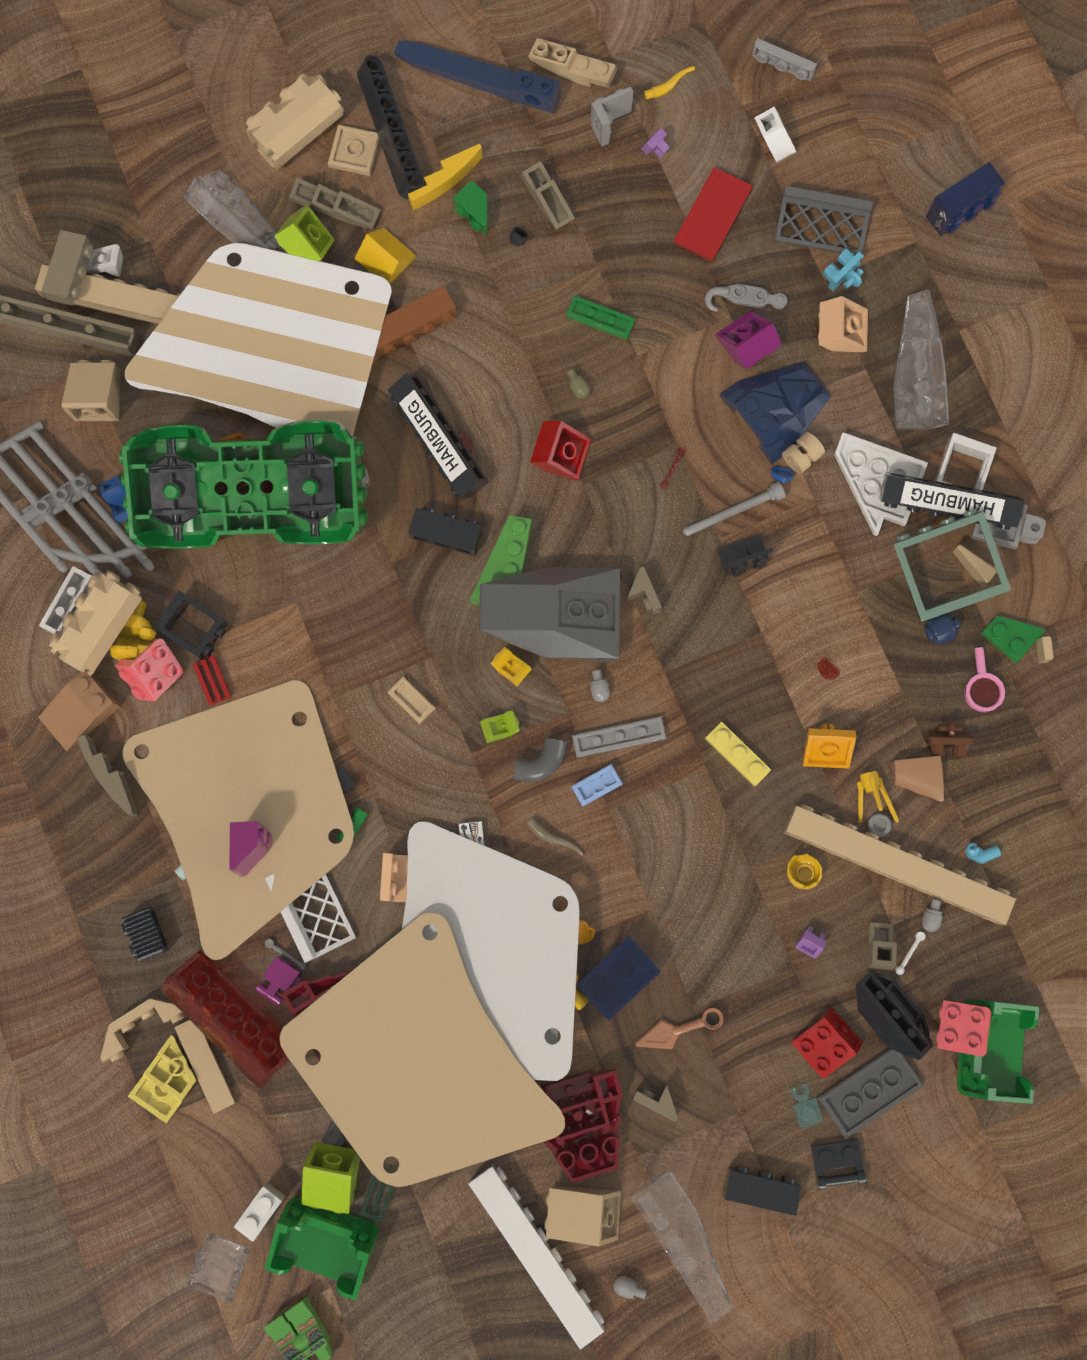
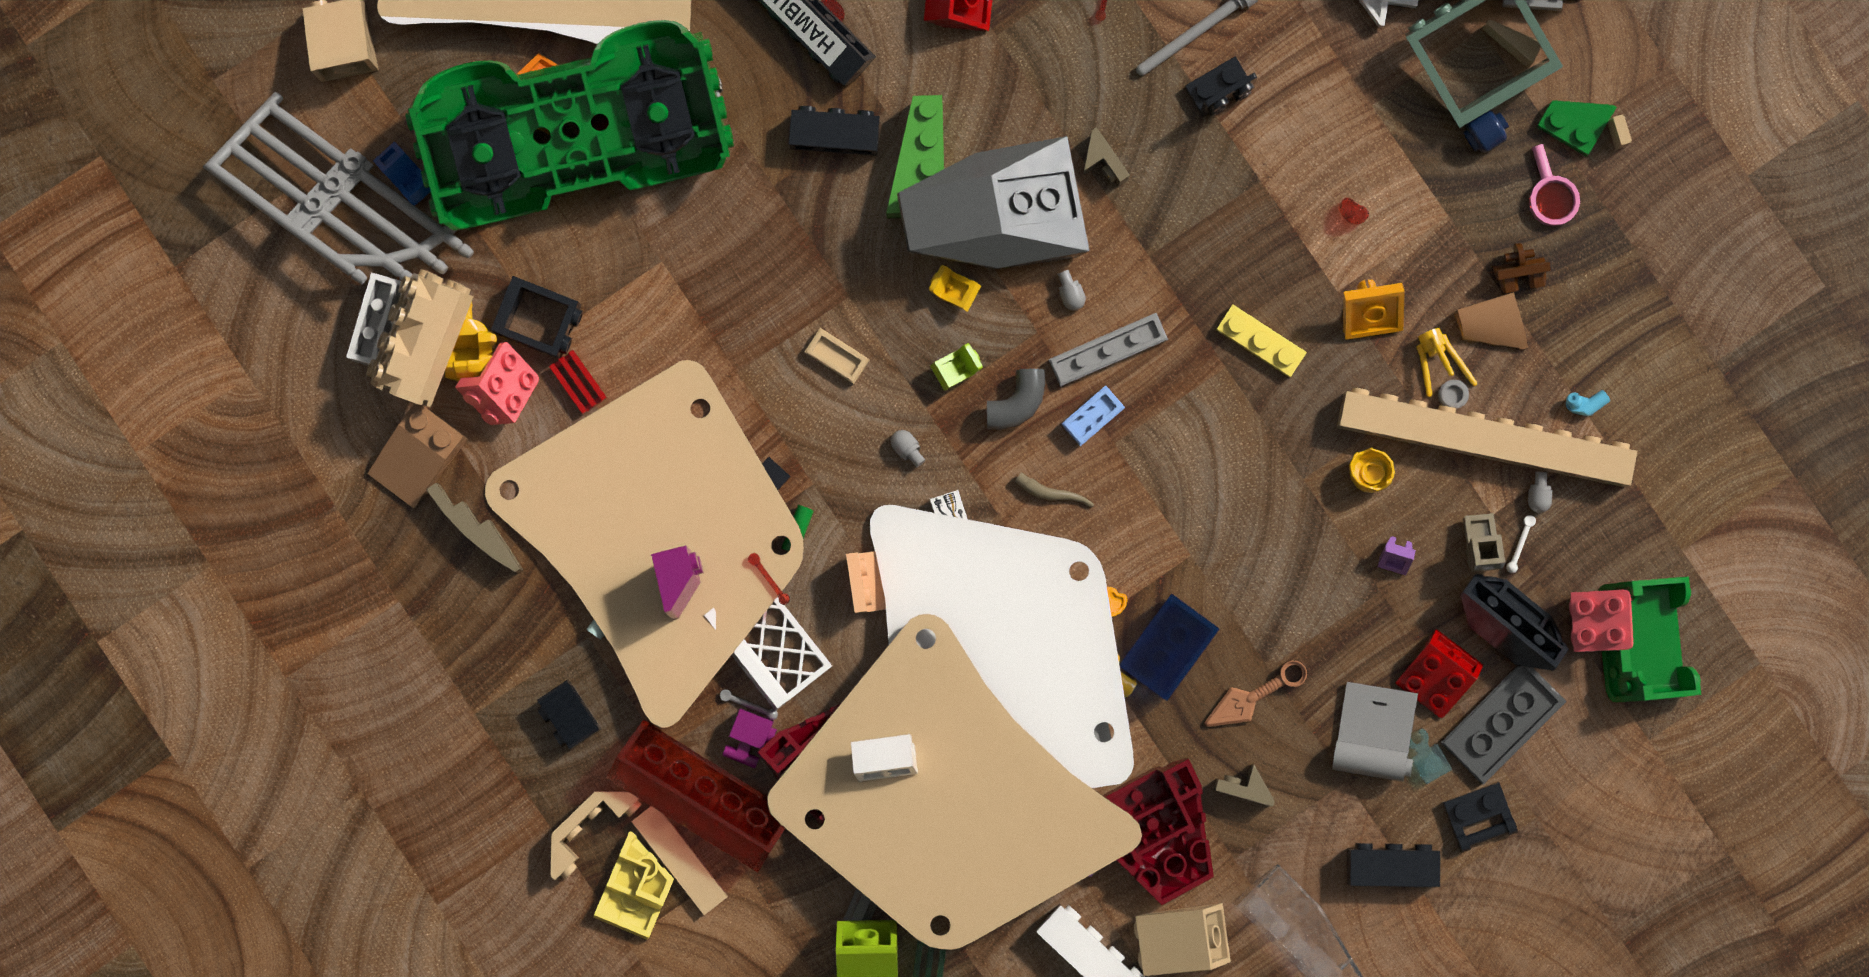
camera: 15 degrees left, 5 degrees up
(312, 842) = (754, 559): none -> clear red hinge
(376, 1020) = (884, 758): none -> white hinge
(449, 780) = (907, 447): none -> light grey cylinder
(768, 1083) = (1373, 736): none -> light grey door

